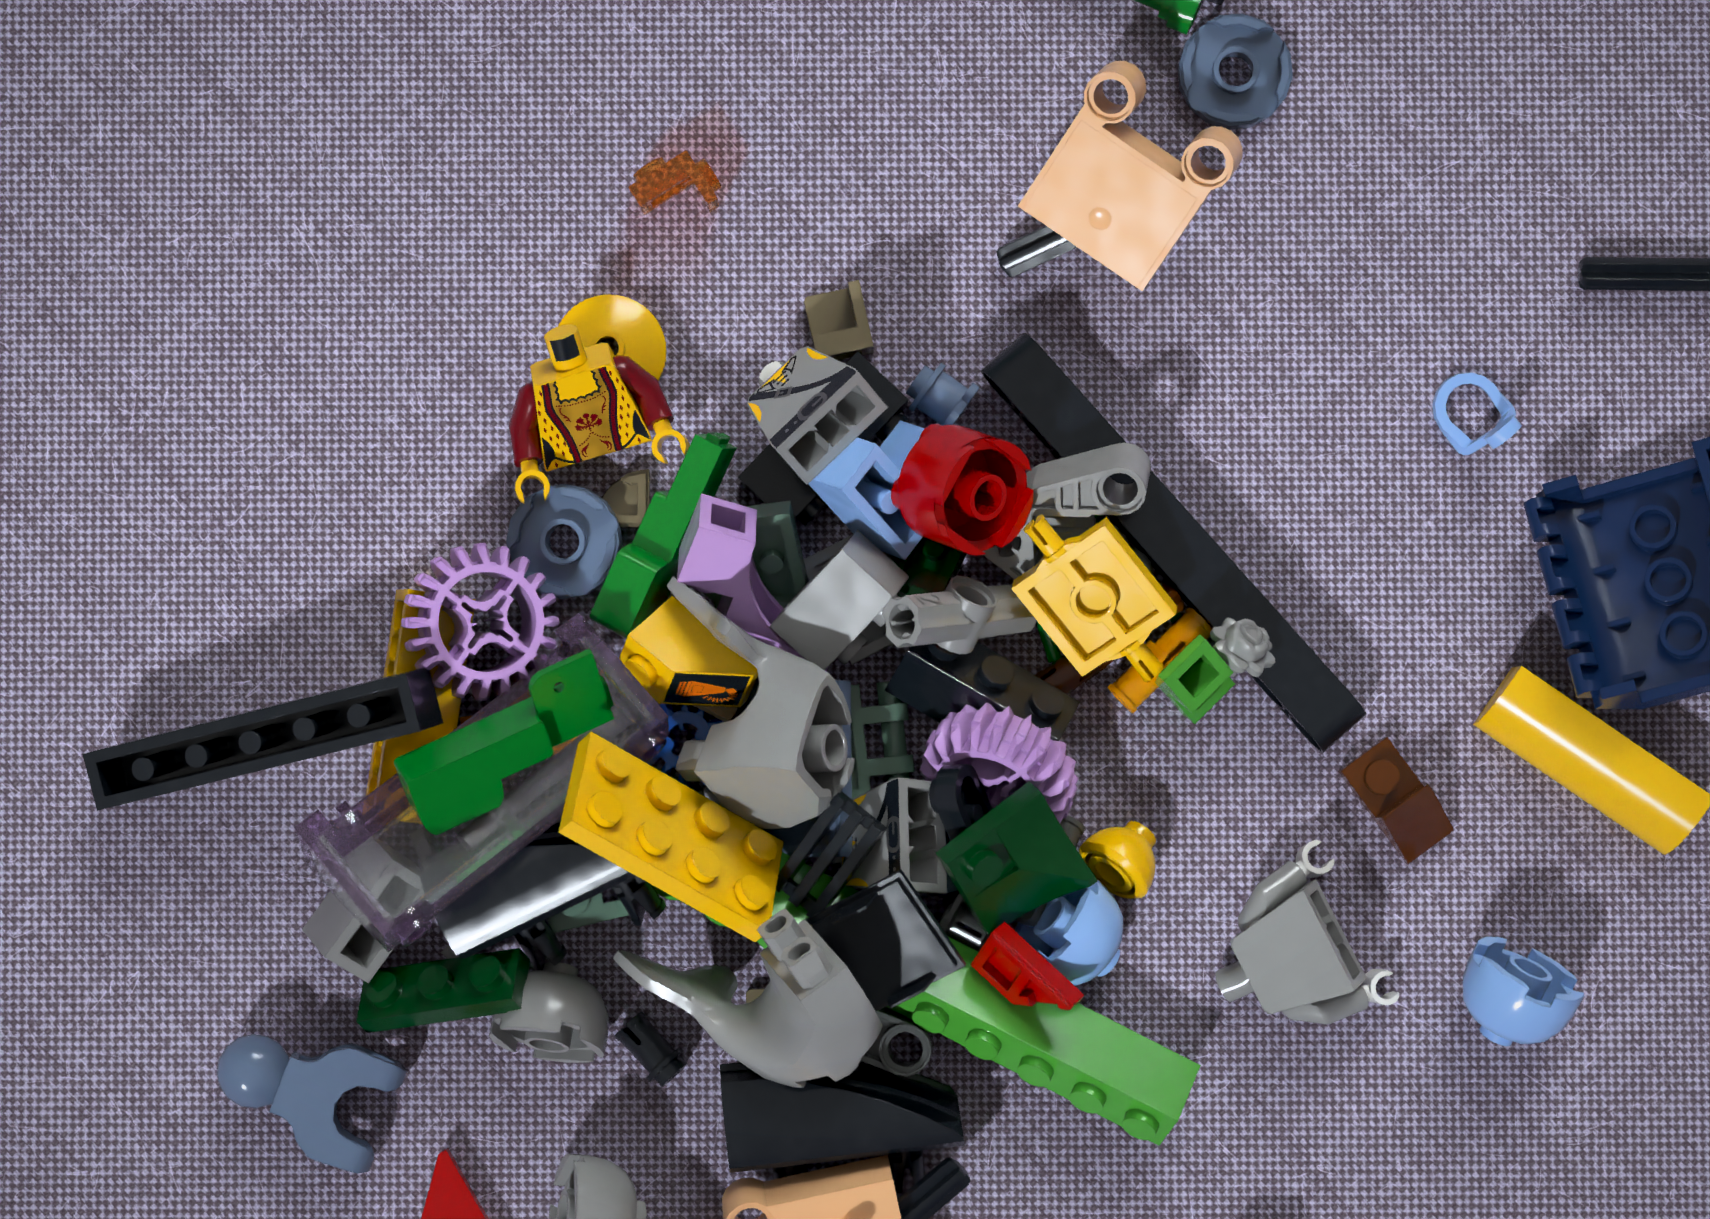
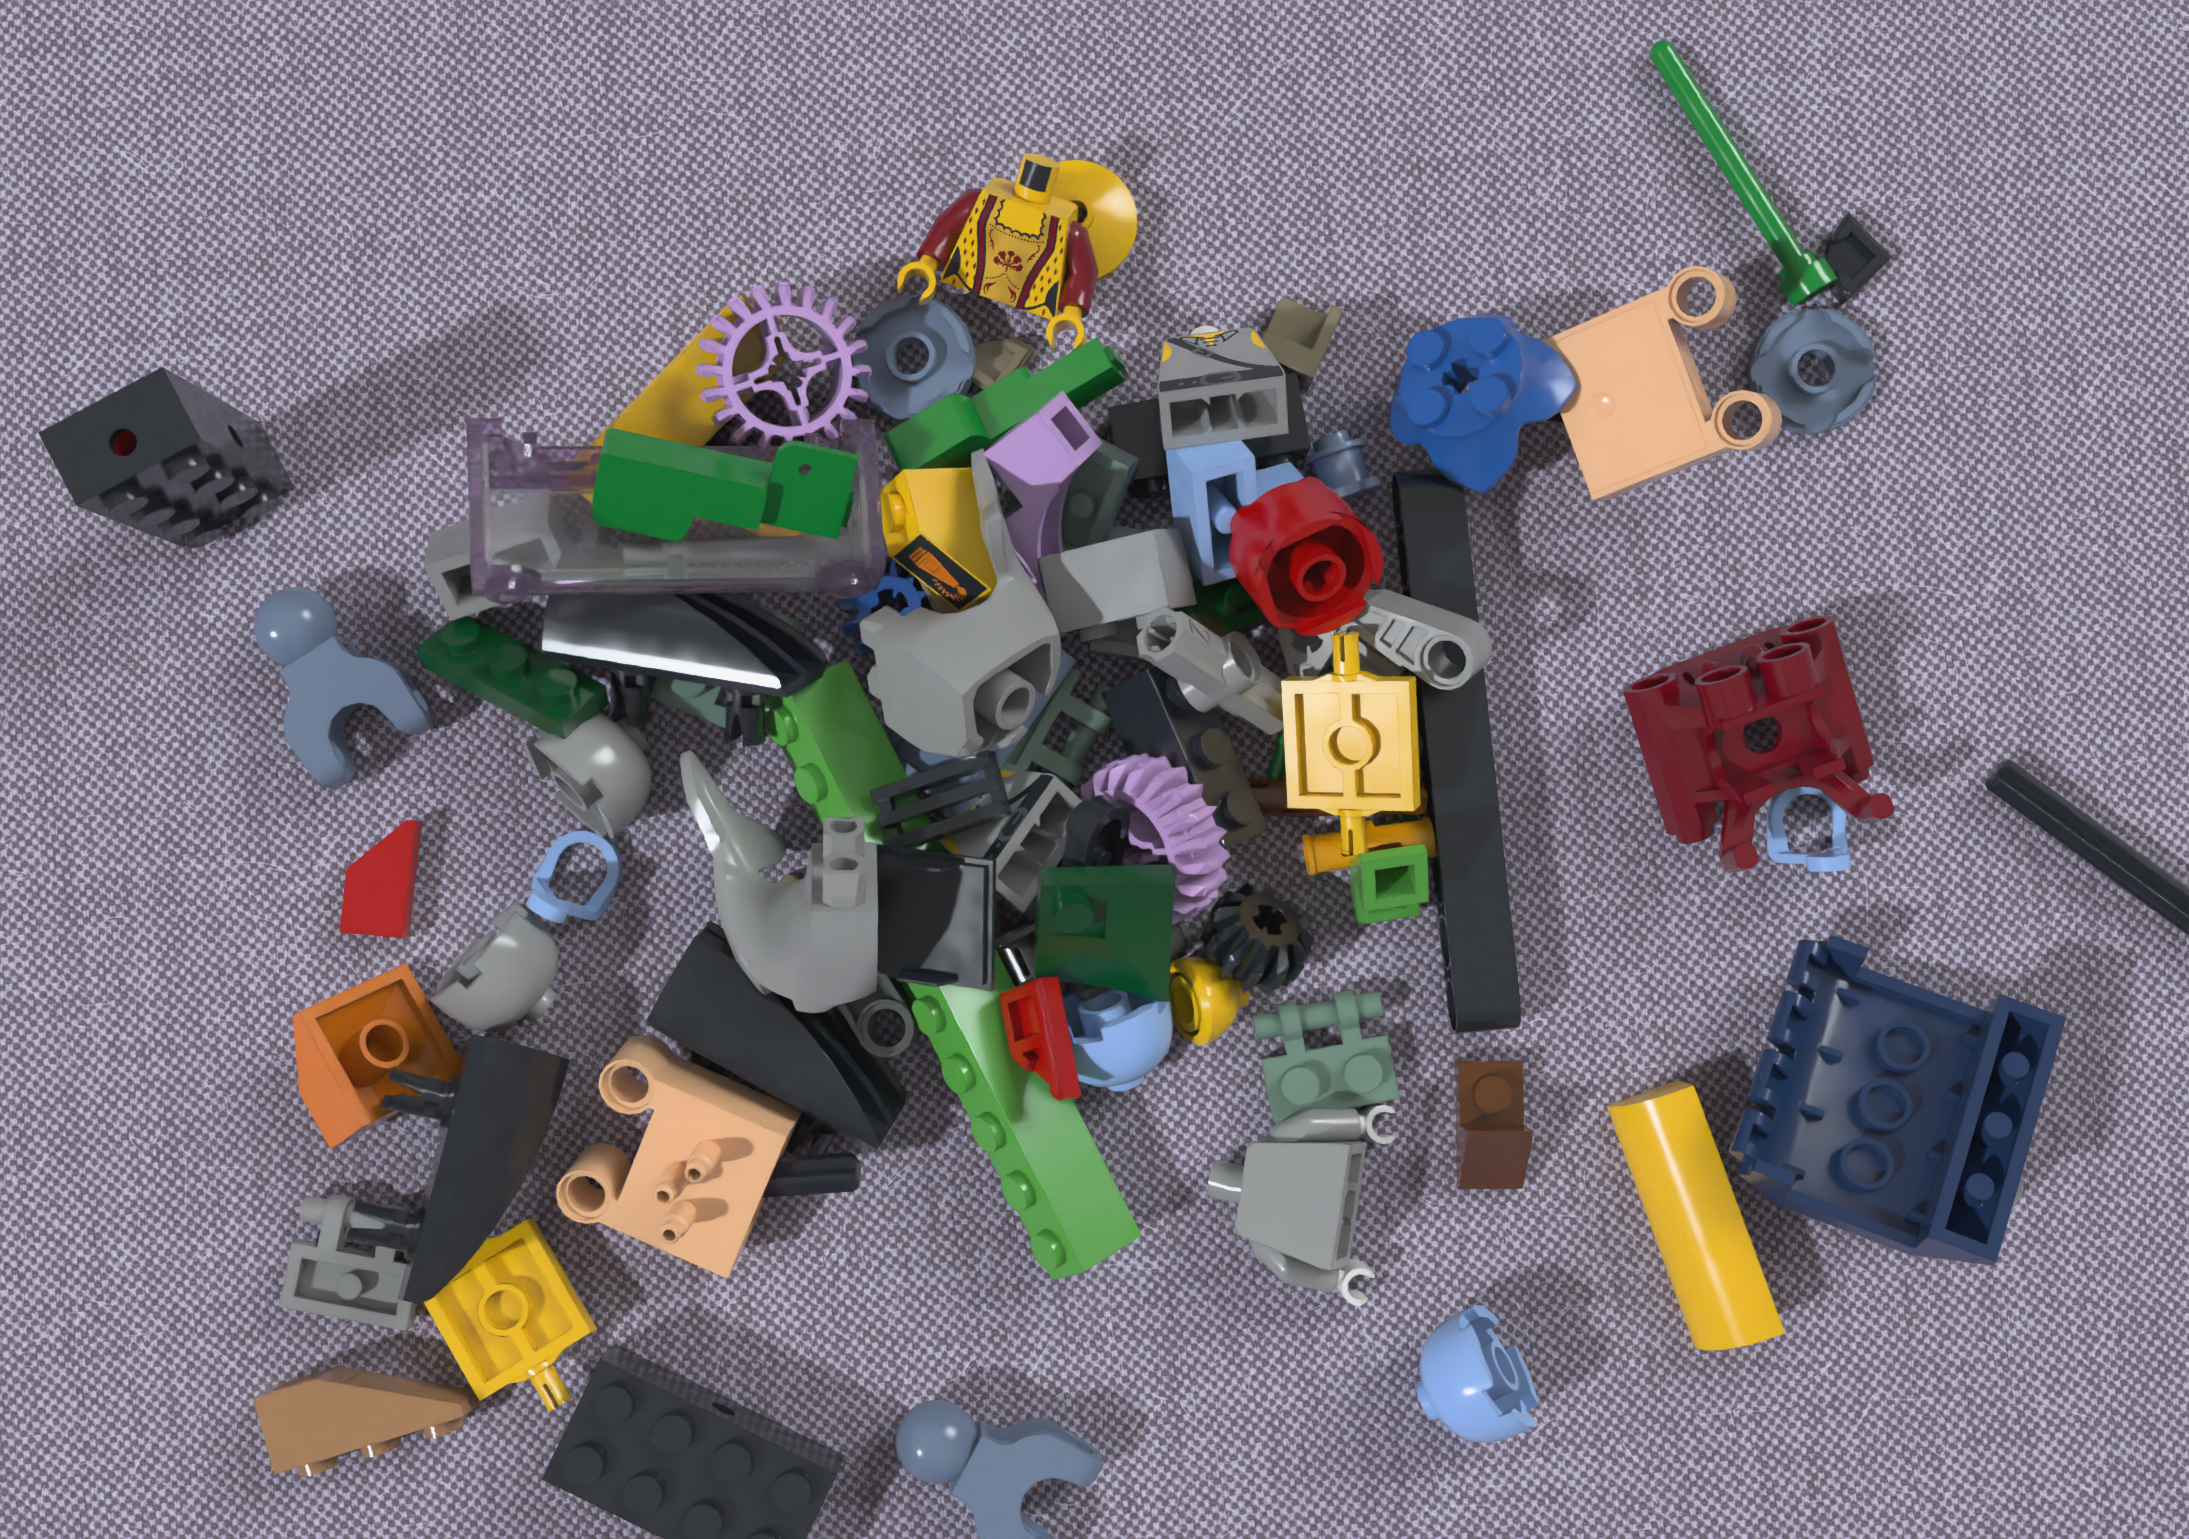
camera: 30 degrees right, 0 degrees up
(89, 1014) = (167, 460): none -> black brick
(263, 738) = (514, 332): black brick -> none
(601, 1138) = (543, 899): none -> light blue piece
(651, 1049) = (662, 864): black pin -> none
(662, 181) = (1234, 103): clear orange bracket -> none
(671, 836) = (807, 677): yellow plate -> none
(1027, 248) = (1476, 432): none -> blue brick
(1128, 788) = (1257, 939): none -> black gear
(1243, 646) = (1454, 885): light grey plant -> none
(1253, 850) = (1330, 1075): none -> sand green plate
(1329, 389) = (1694, 726): none -> dark red piece

